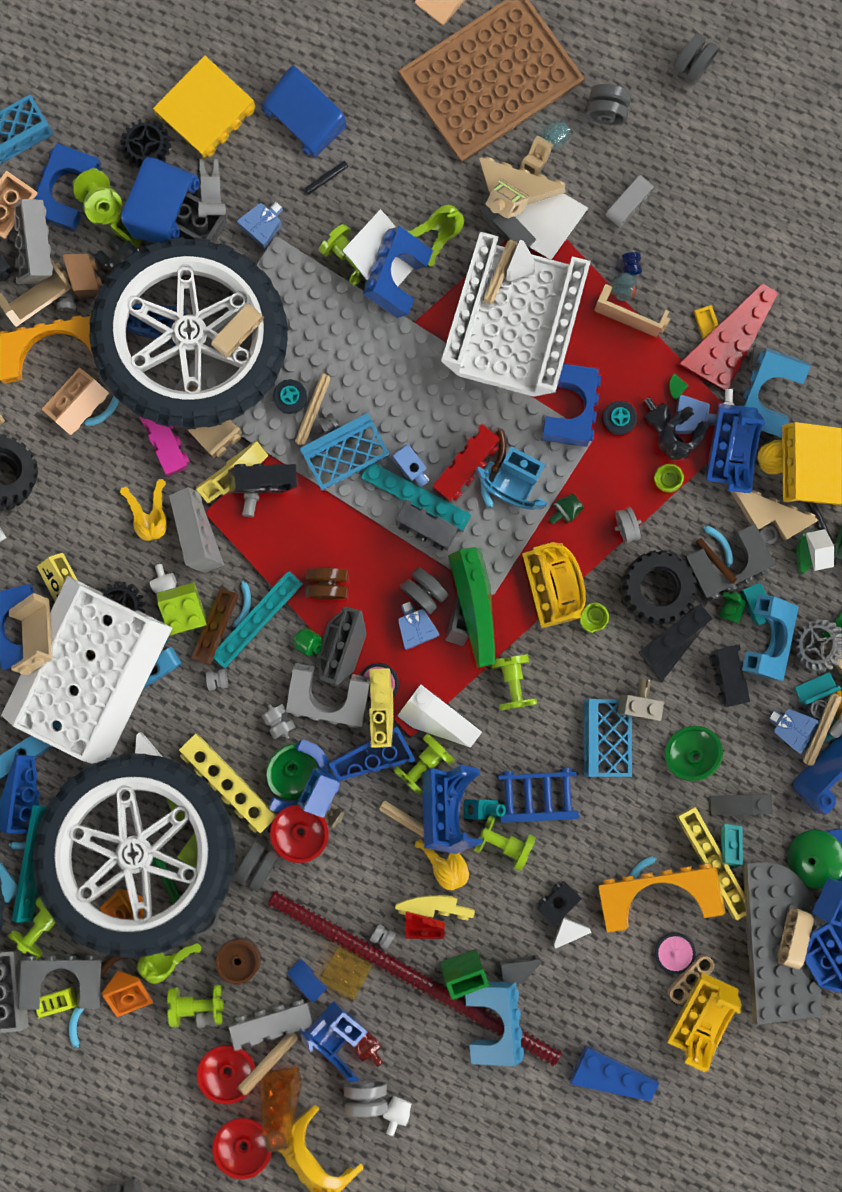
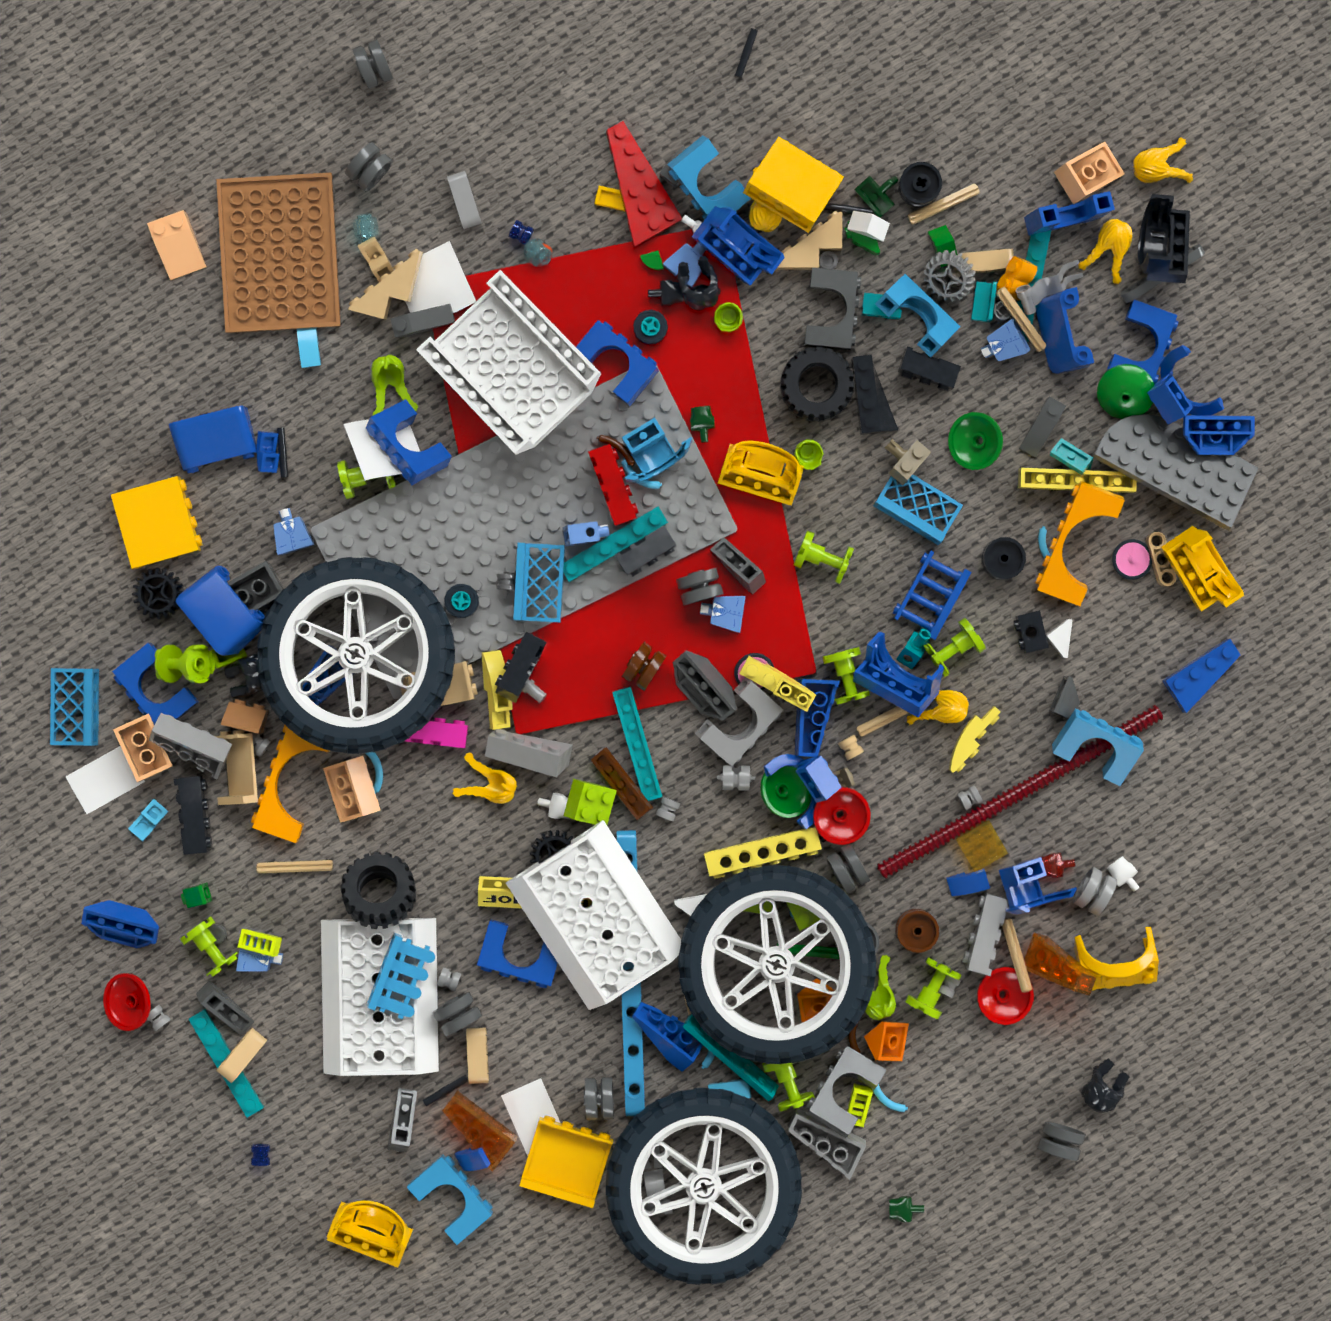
camera: 60 degrees left, 5 degrees up
(36, 633) = (537, 939): tan panel -> none
(210, 192) = (237, 562): light grey flag -> none
(233, 1159) = (1080, 1030): red dish -> none
(237, 330) = (382, 612): tan beam -> none
(246, 604) = (619, 746): medium azure piece -> none
(307, 642) = (683, 712): green head -> none
(312, 410) = (484, 588): tan axle -> none
(318, 163) = (266, 452): none -> blue slope
(364, 805) = (850, 747): none -> tan wheel
(423, 927) = (983, 758): red wing -> none
(427, 146) = (308, 347): none -> medium azure slope
(433, 716) = (812, 642): white wedge -> none
(464, 974) = (1042, 747): green brick -> none
(476, 601) = (734, 547): green wedge -> none
(500, 272) = (462, 353): tan axle -> none
(507, 199) = (402, 309): tan torso -> none
(521, 263) = (466, 330): white slope -> none
(596, 837) = (992, 560): none -> black wheel
(628, 525) = (748, 377): light grey wheel -> none
(629, 317) = (544, 283): tan panel -> none
(716, 561) = (824, 320): reddish brown bar -> none
(724, 543) = (811, 303): medium azure piece -> none
(733, 607) = (872, 330): green bracket -> none
(795, 938) = (1180, 451): tan beam -> none

